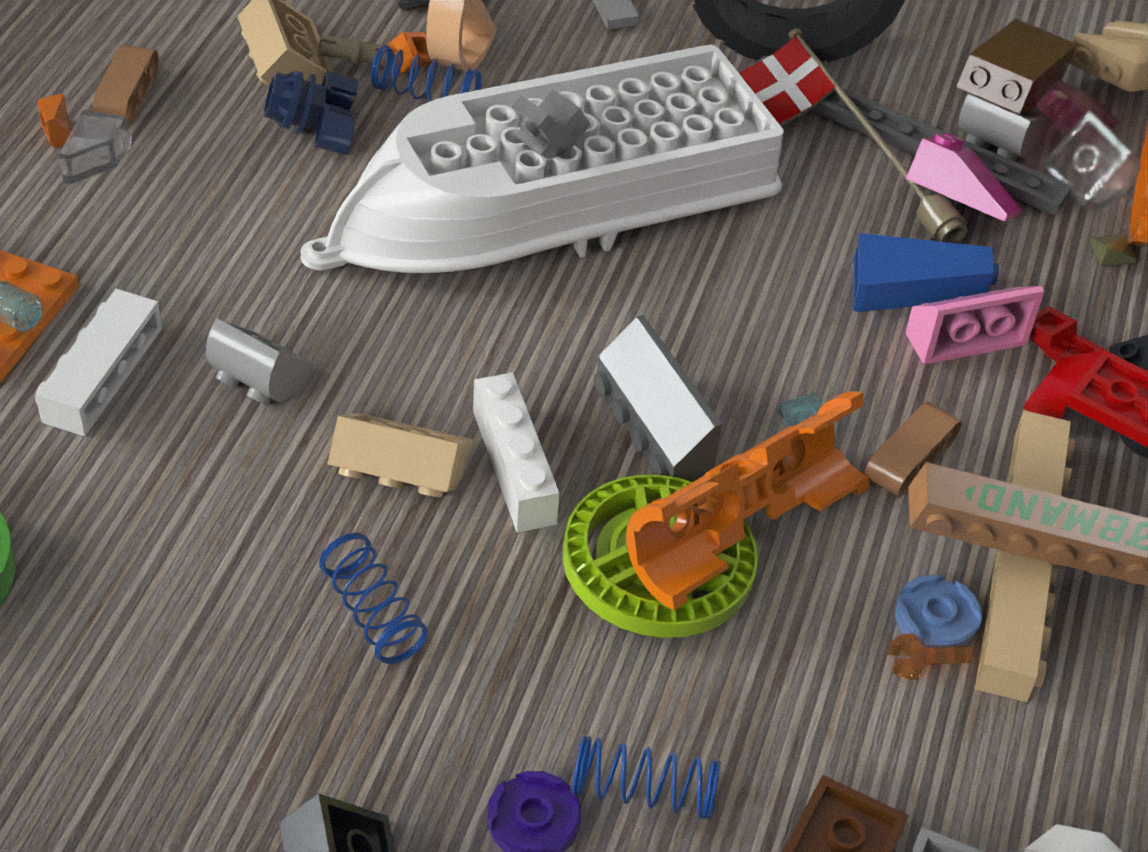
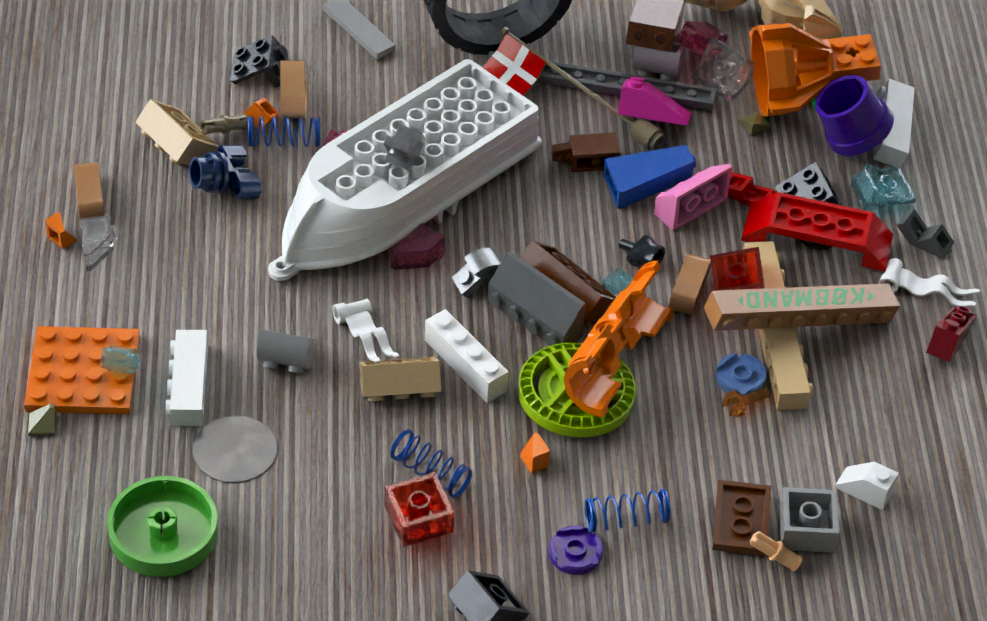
camera: 20 degrees left, 0 degrees up
(108, 484) = (234, 448): none -> flat silver sticker
(311, 664) = (419, 509): none -> clear red brick
(387, 358) = (361, 325): none -> white flag
(526, 281) = (418, 249): none -> clear pink slope
(546, 636) = (536, 454): none -> orange slope
(596, 330) = (479, 269): none -> flat silver brick
(726, 384) = (570, 277): none -> reddish brown slope
(839, 217) = (586, 151): none -> reddish brown hinge
(865, 377) = (642, 251): none -> black piece
(992, 446) = (737, 270): none -> clear red slope

